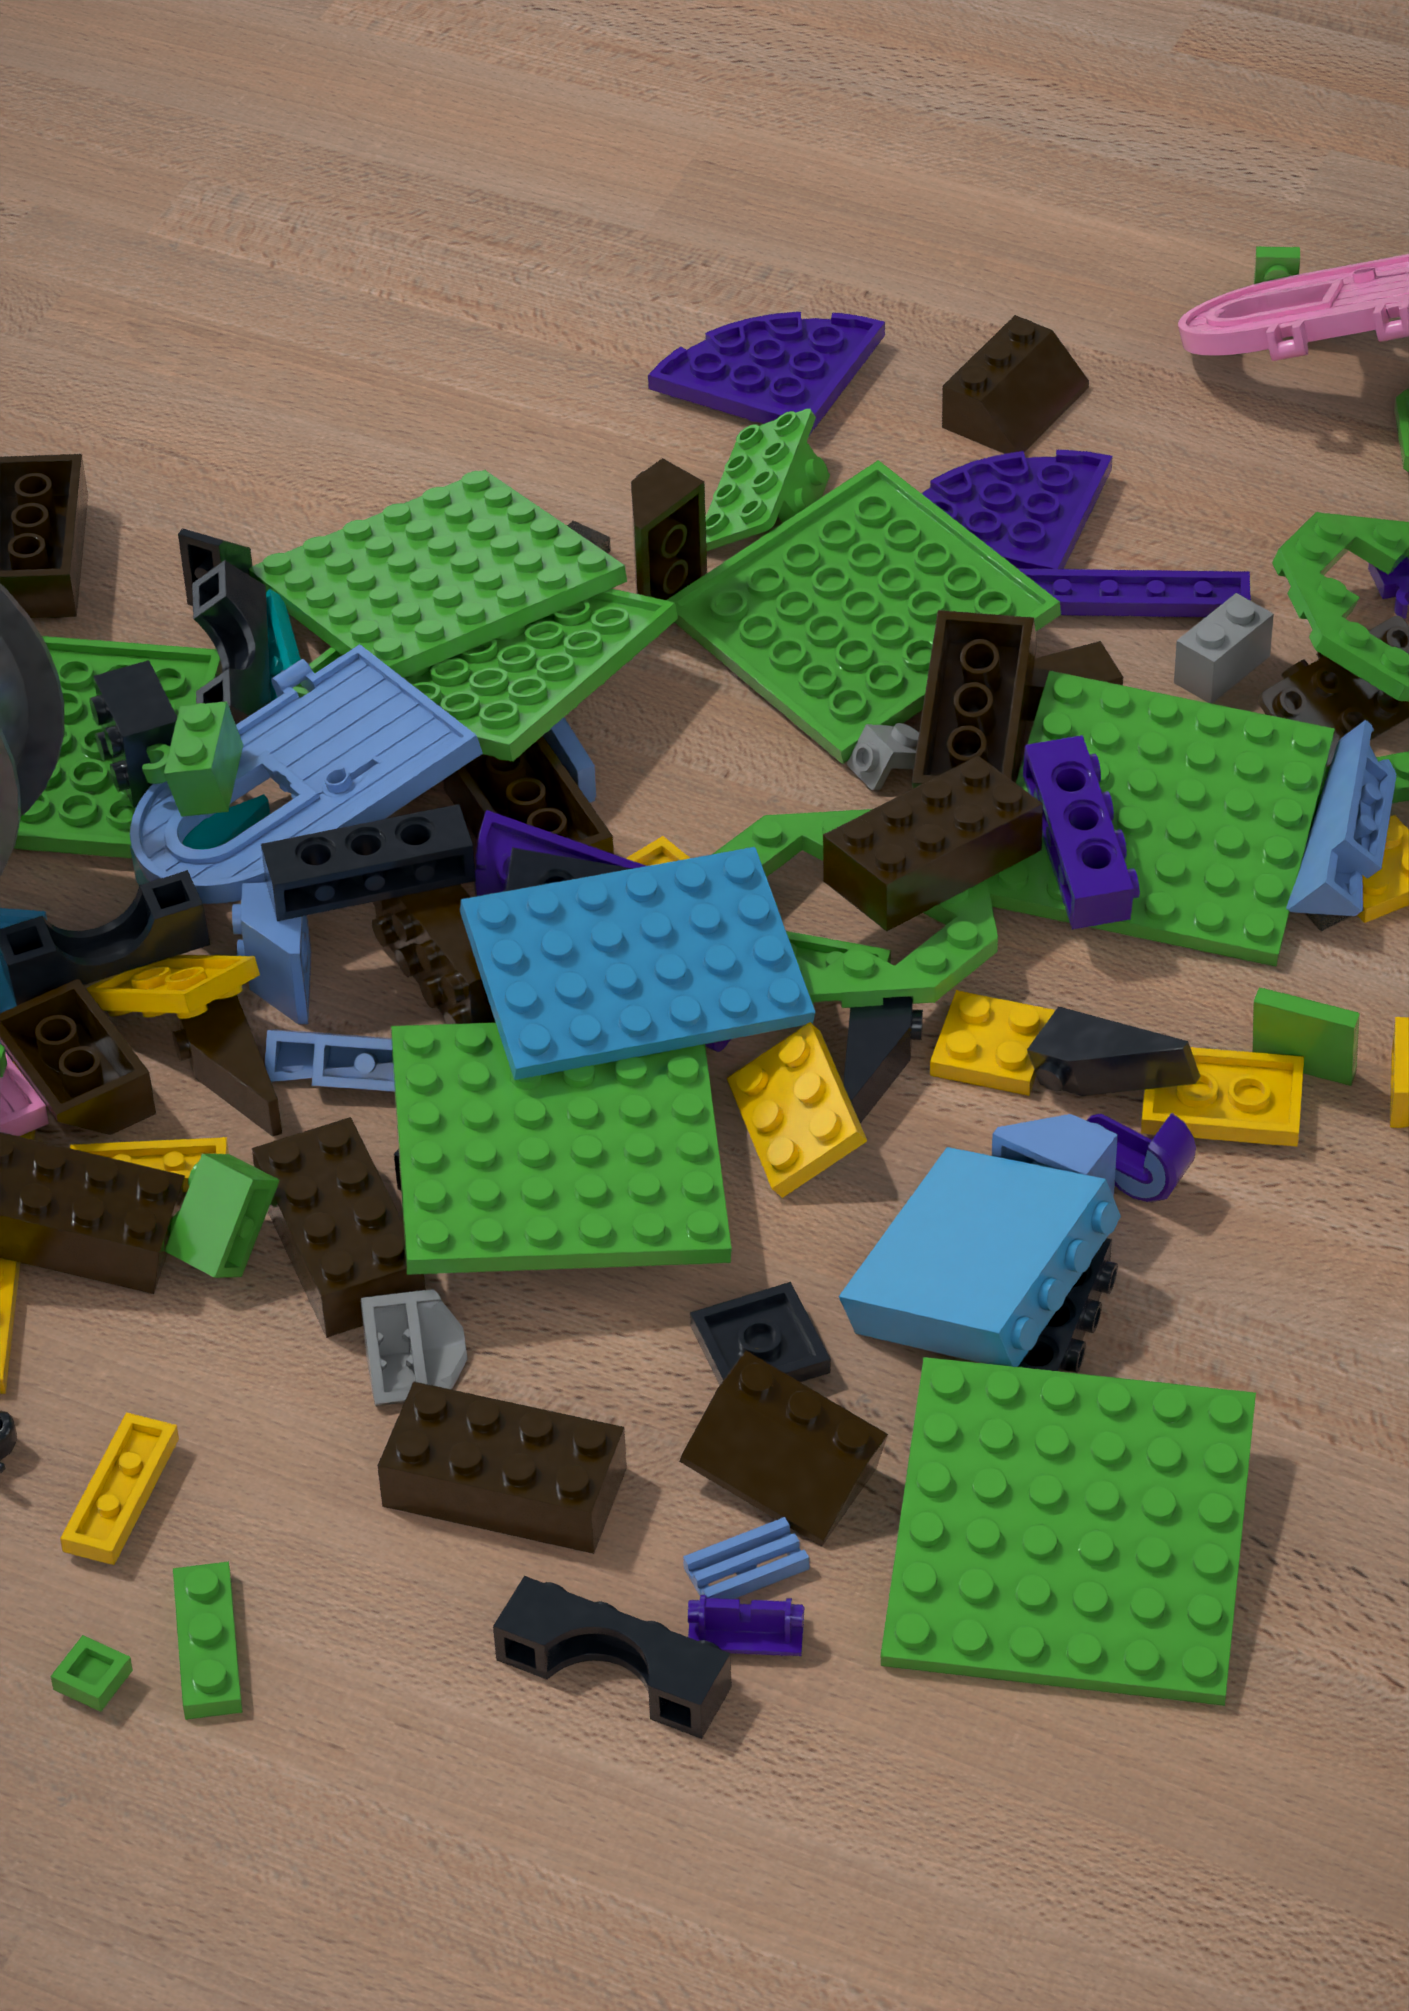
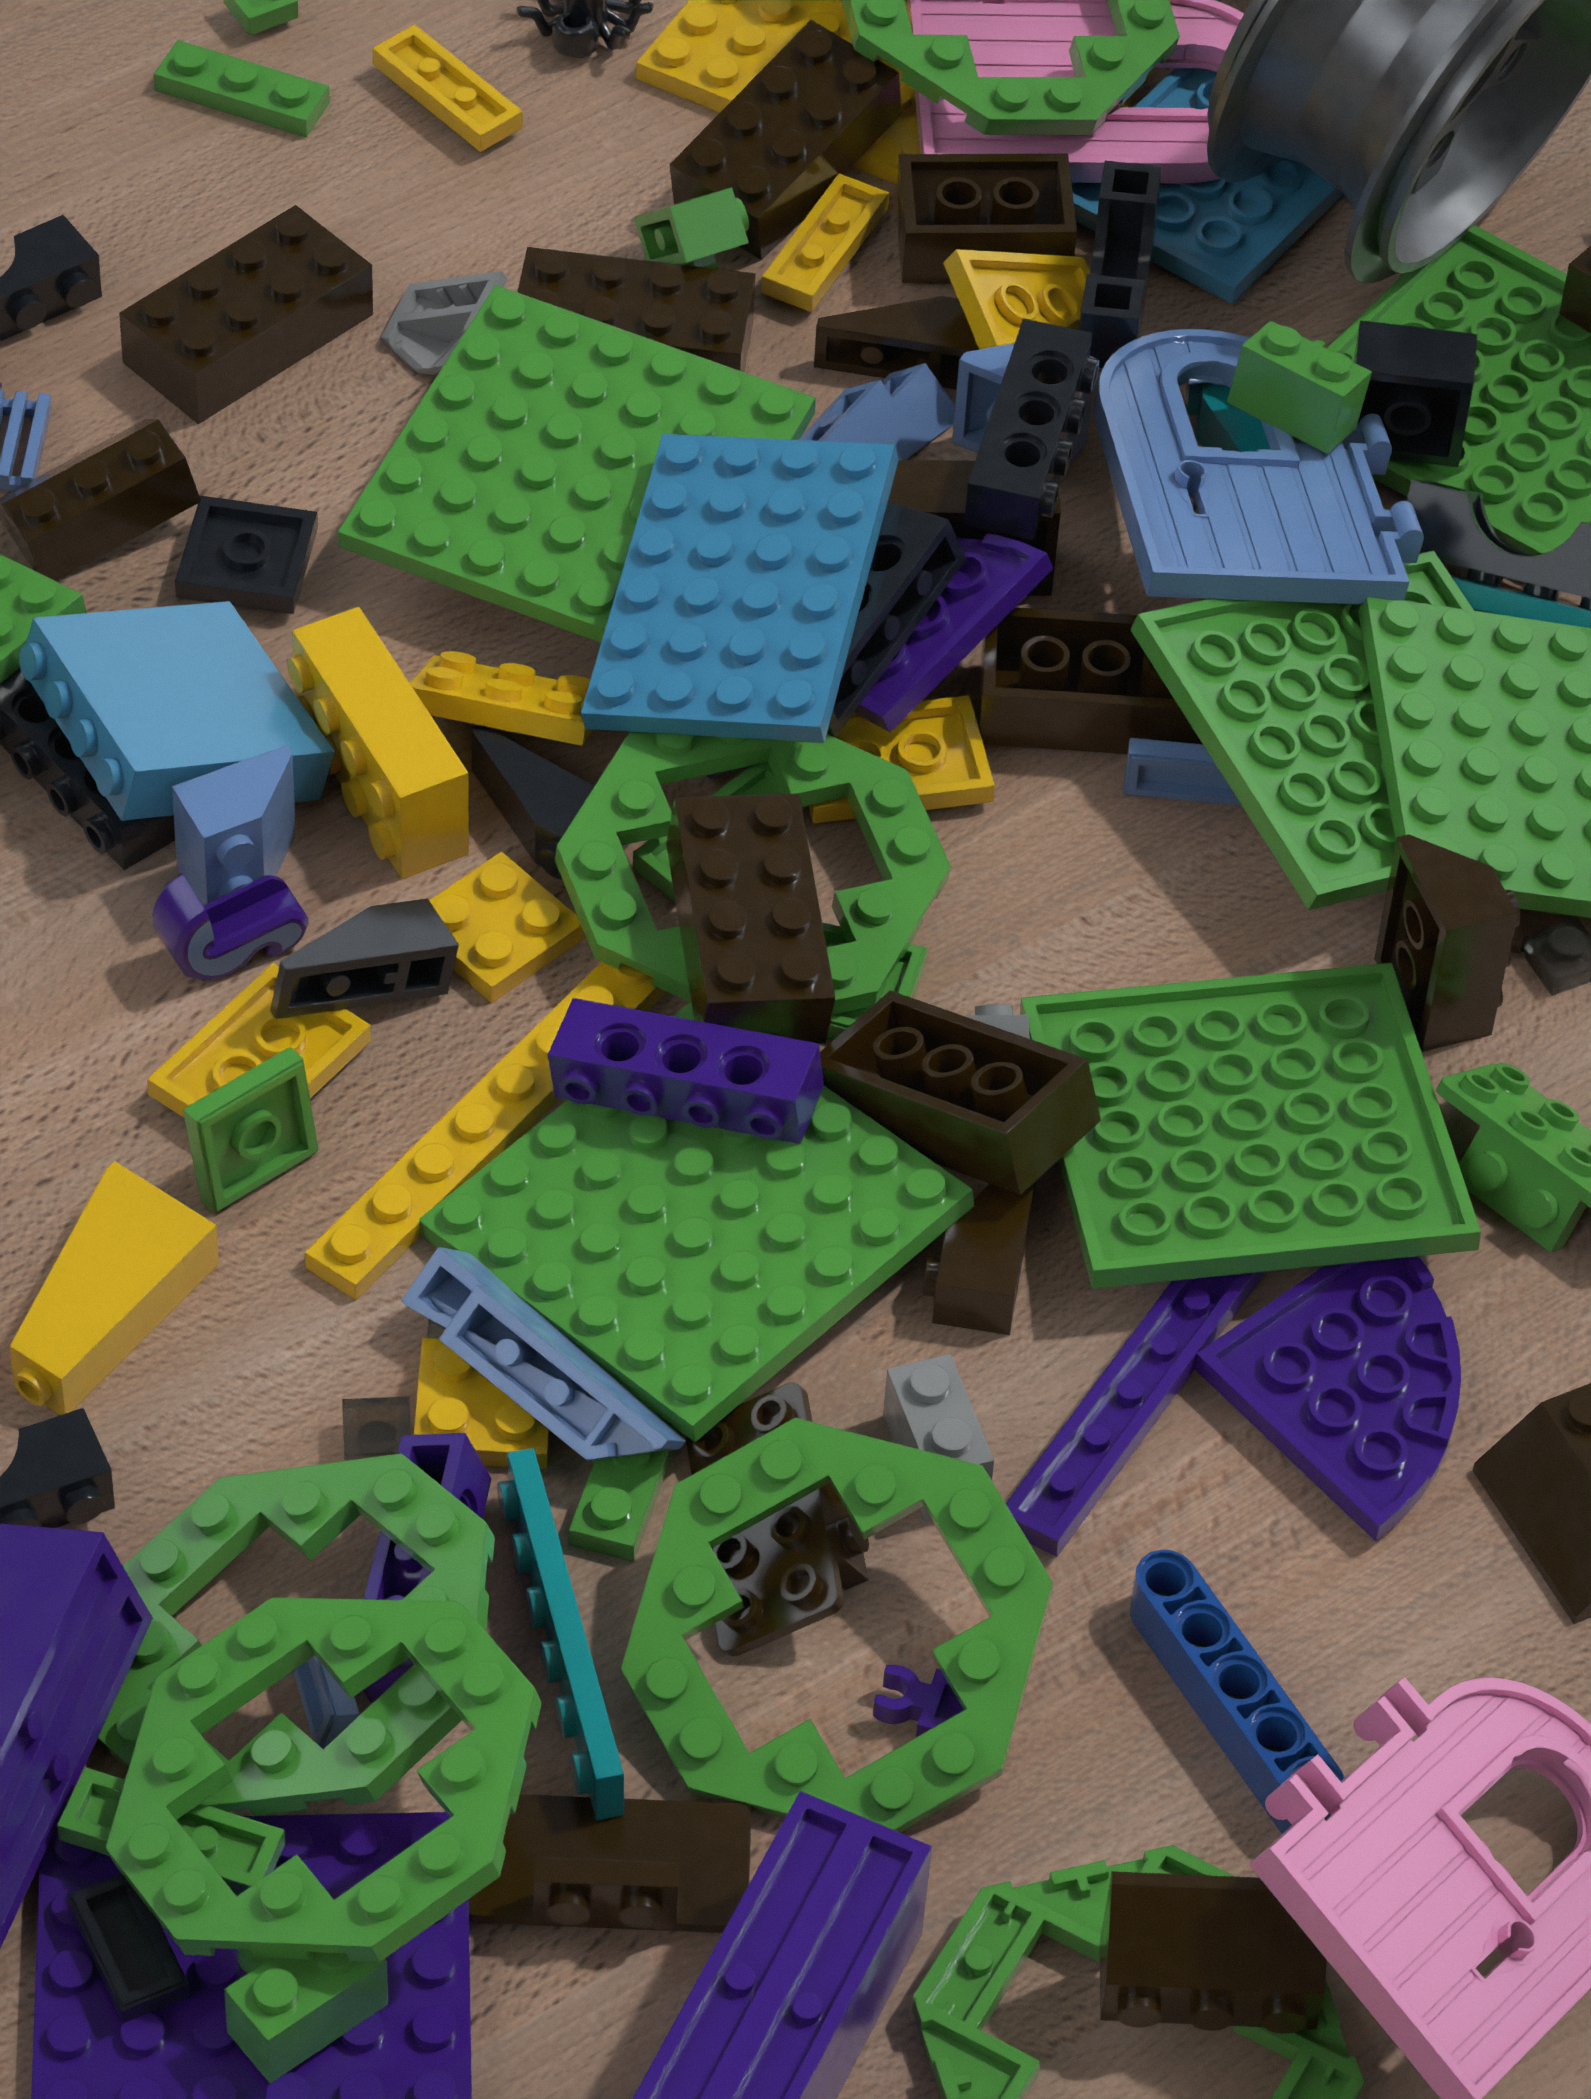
camera: 115 degrees right, 5 degrees up
(924, 1109) = (385, 743): none -> yellow brick
(1167, 969) = (460, 1143): none -> yellow plate
(1280, 472) = (1222, 1669): none -> blue beam

